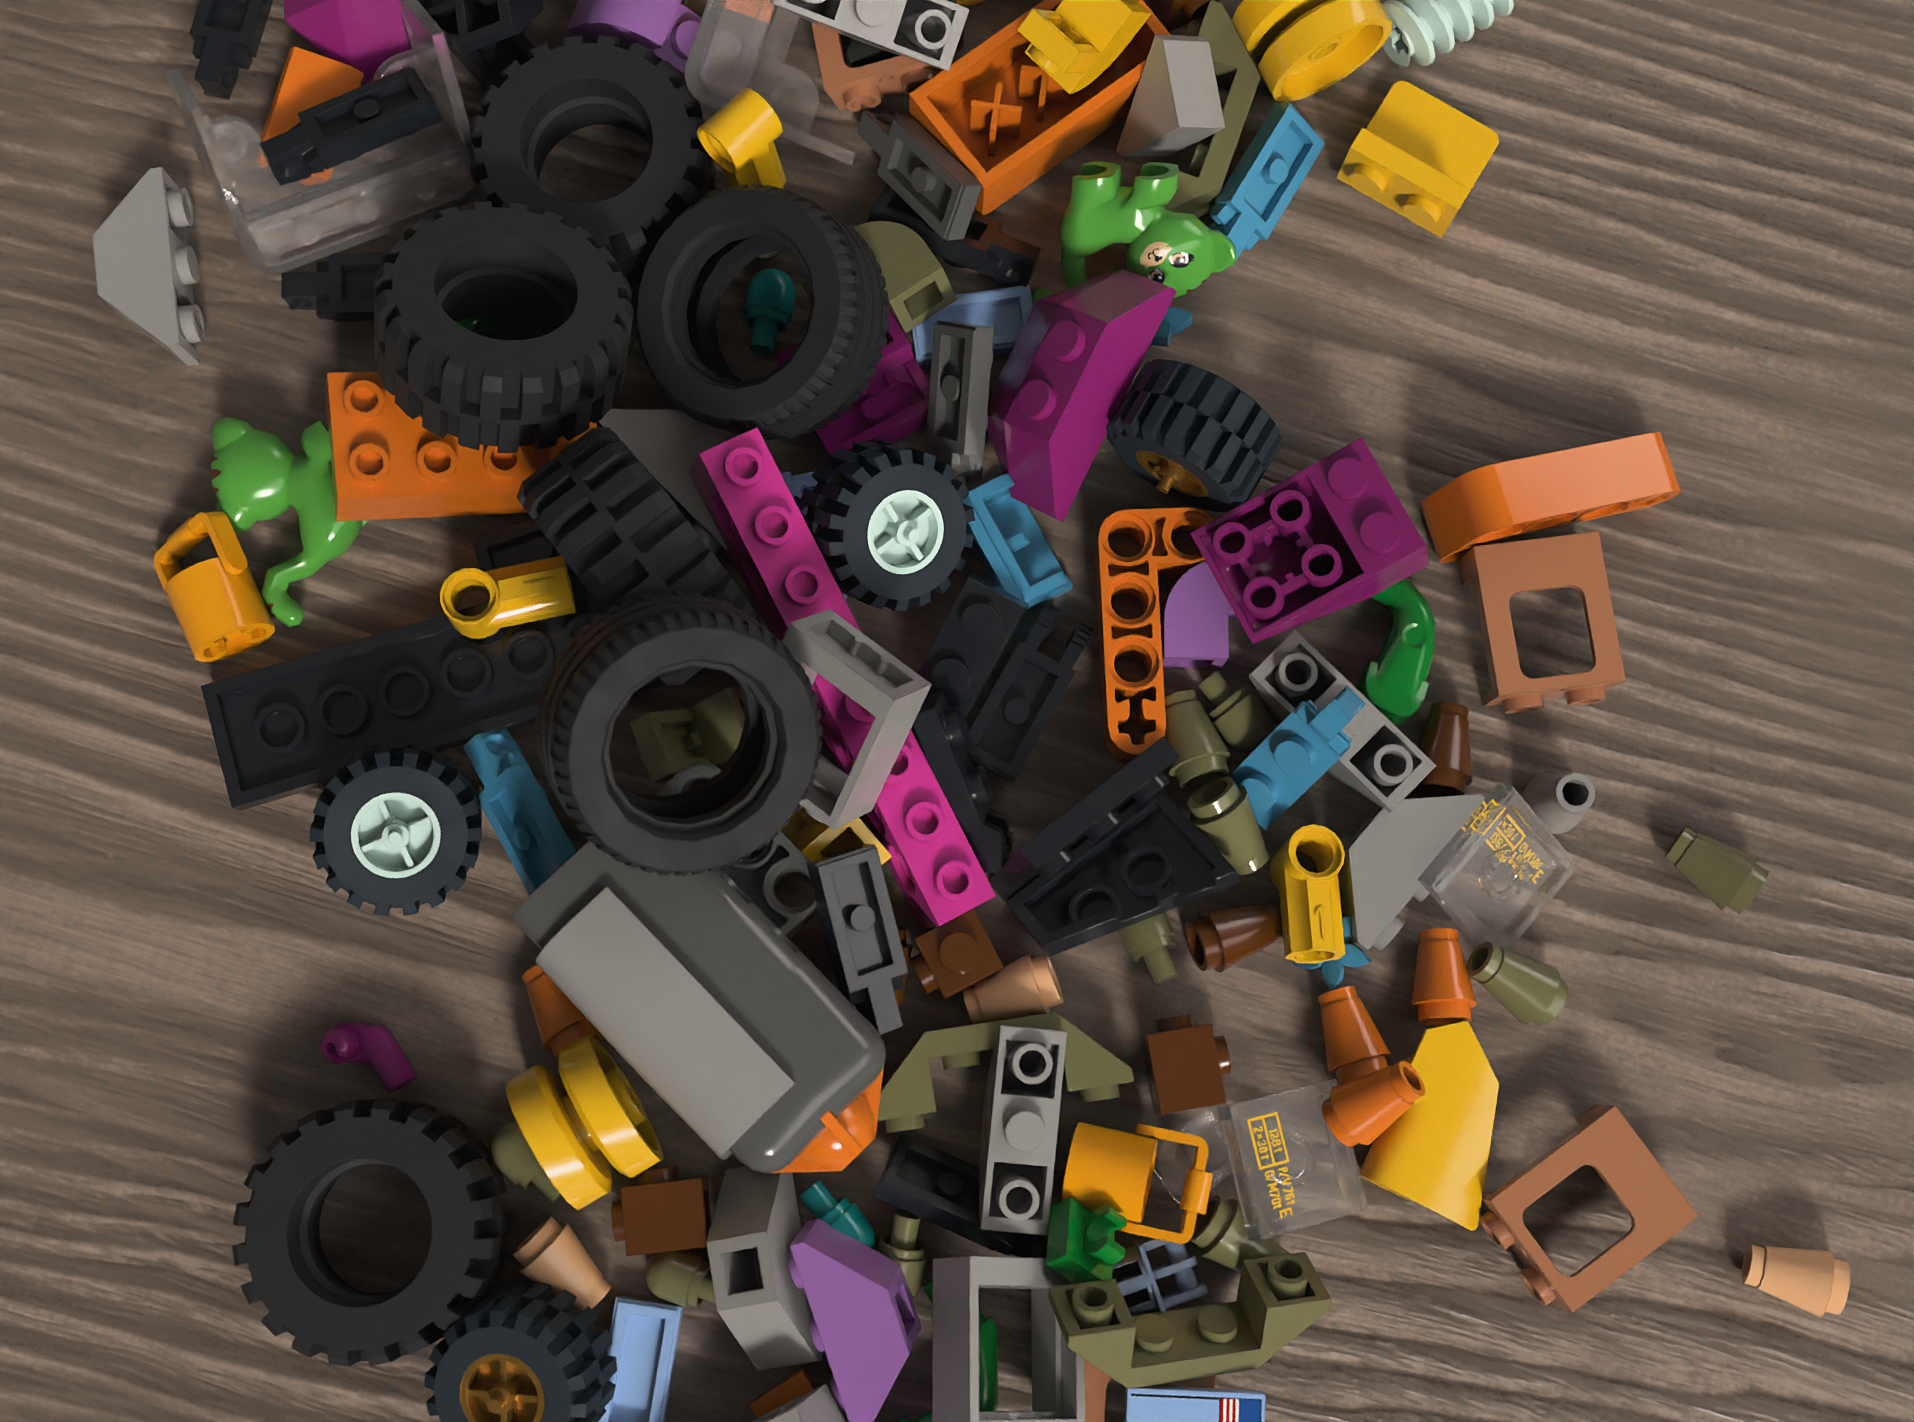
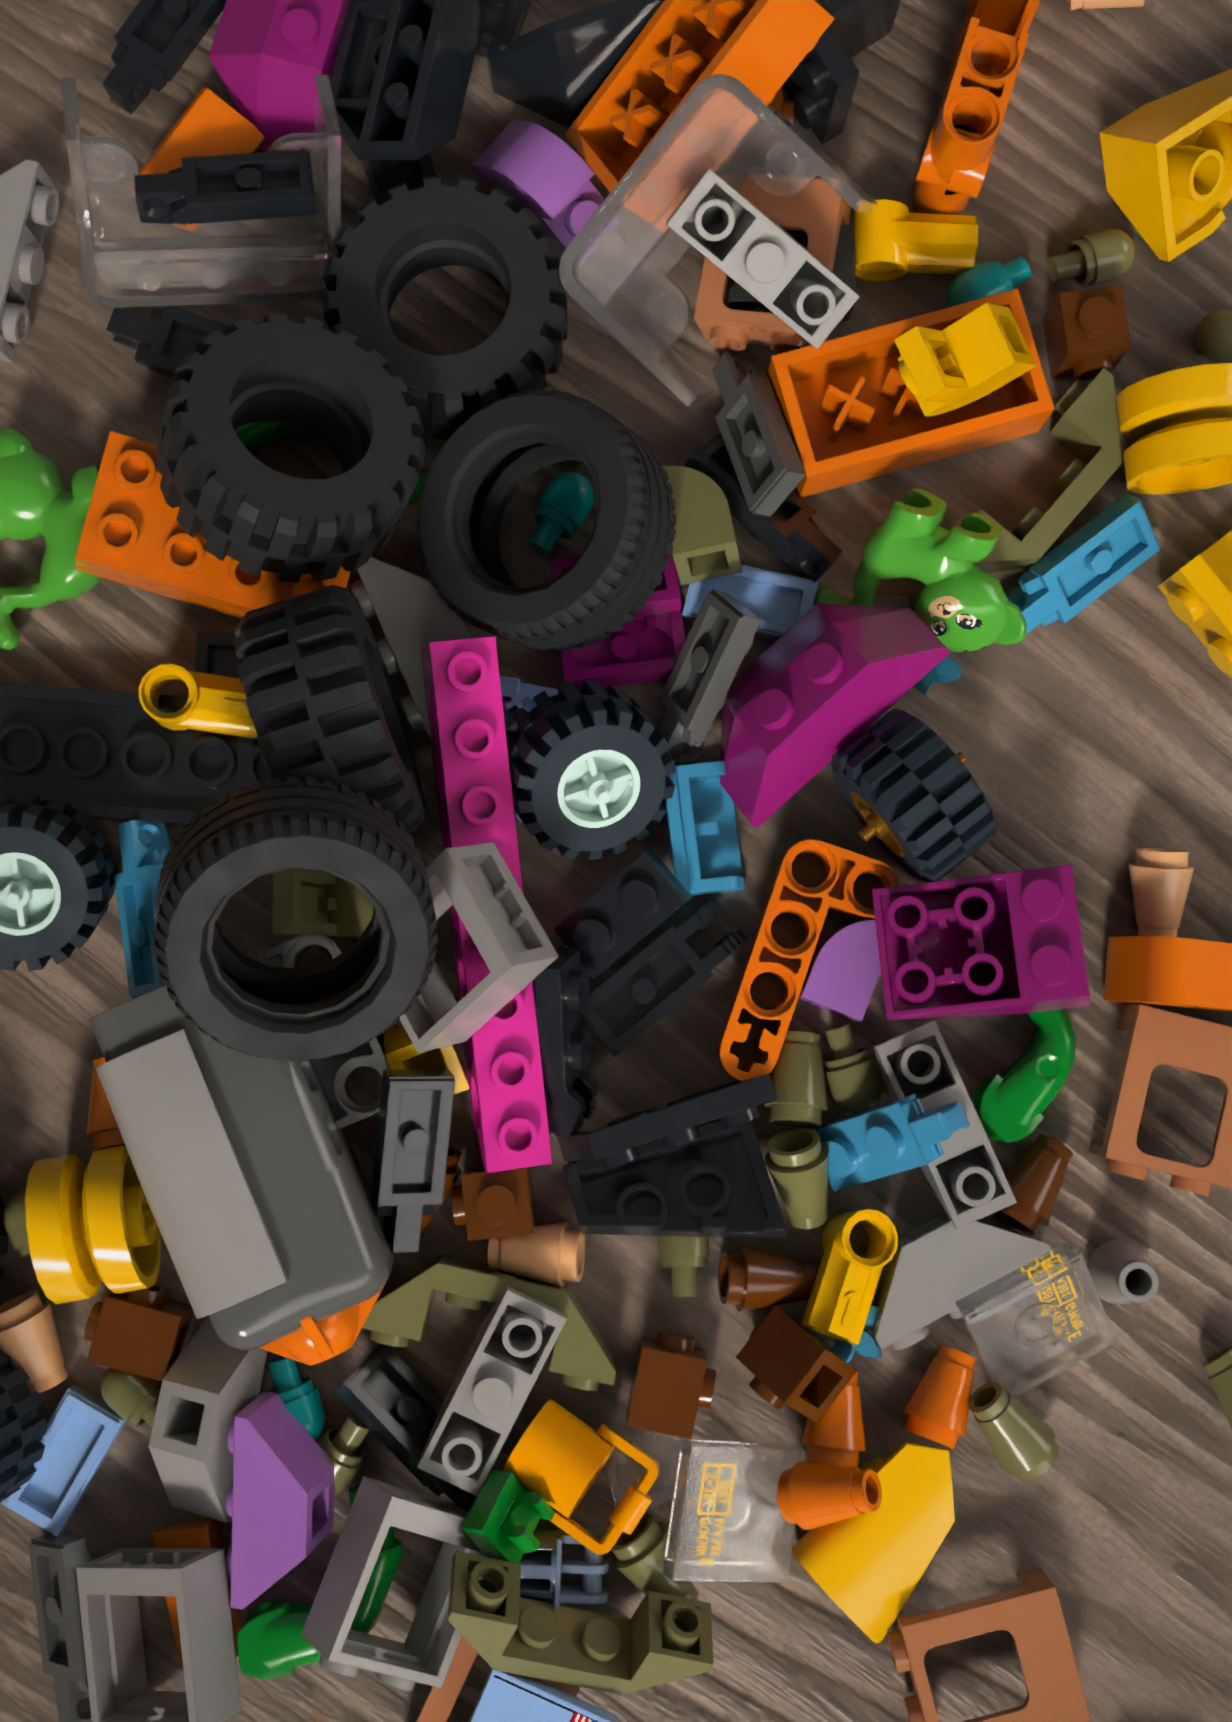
camera: 25 degrees right, 5 degrees up
(743, 139) = (591, 351): yellow piece -> none
(1174, 99) = (1028, 454): light grey slope -> none
(1293, 998) = (794, 1365): none -> reddish brown brick
(1447, 439) = (1160, 889): none -> light nougat cone

